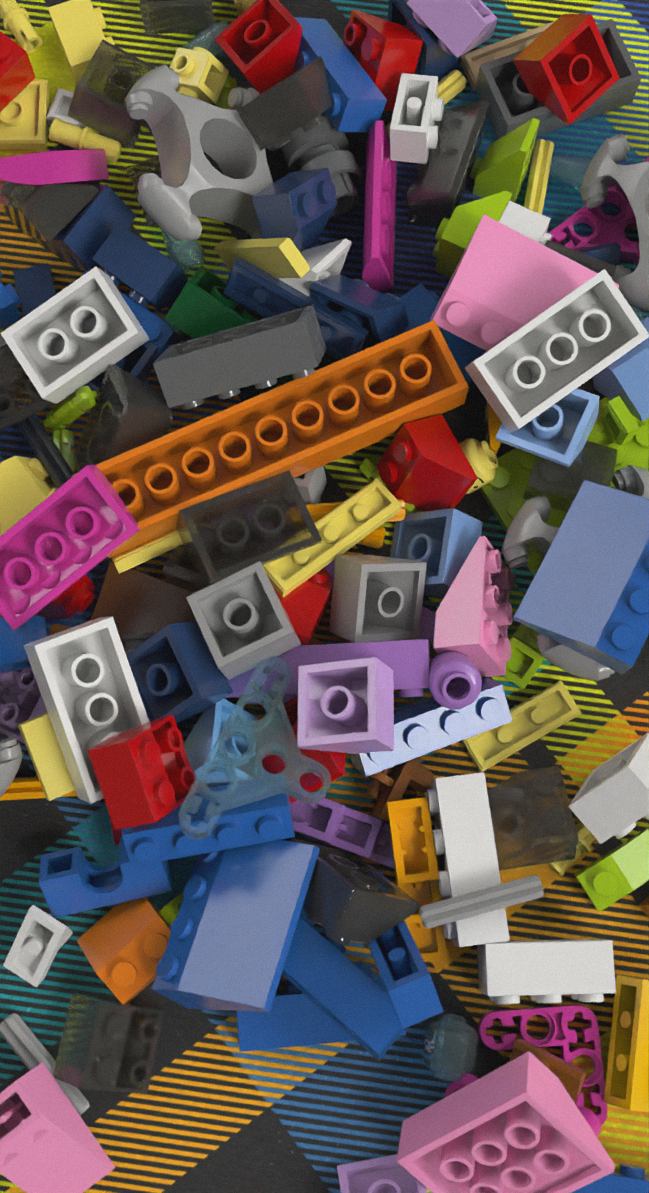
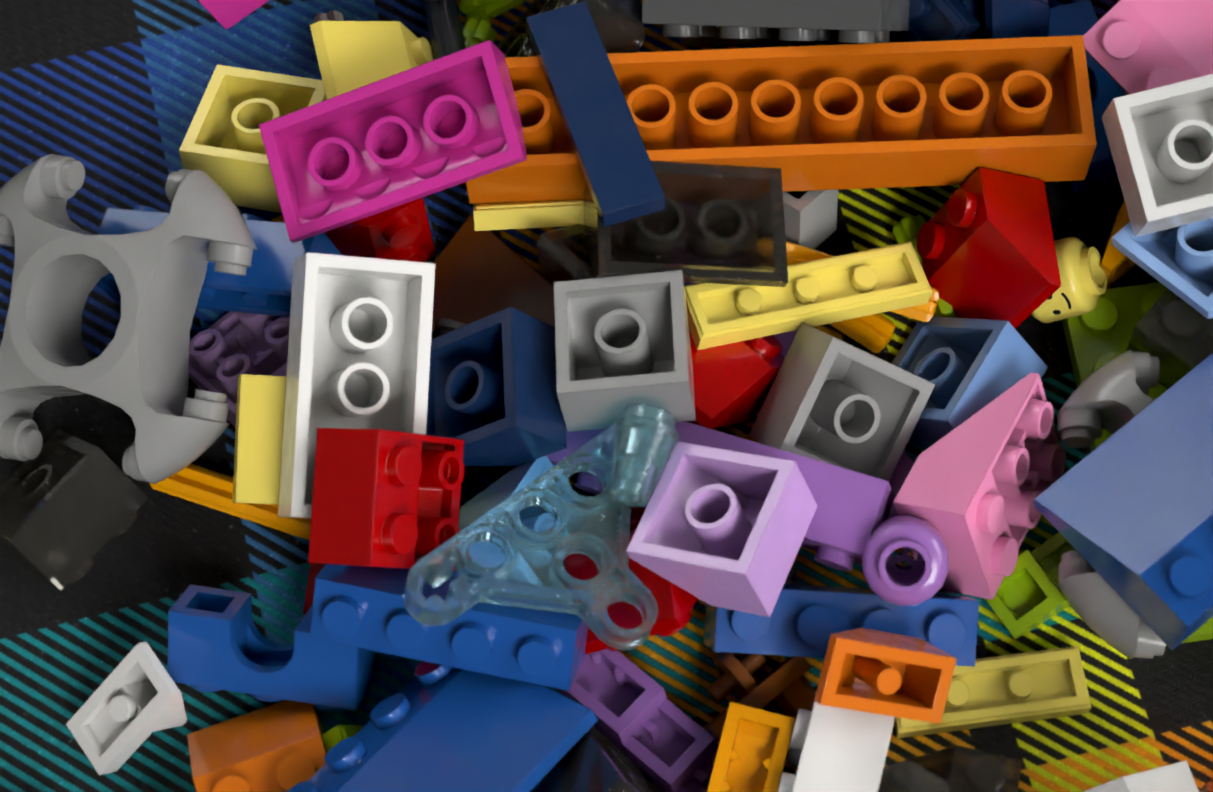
camera: 25 degrees right, 10 degrees down
(167, 482) = (595, 114): none -> dark blue tile
(281, 682) = (640, 452): none -> clear light blue cone
(472, 756) = (885, 675): none -> orange slope

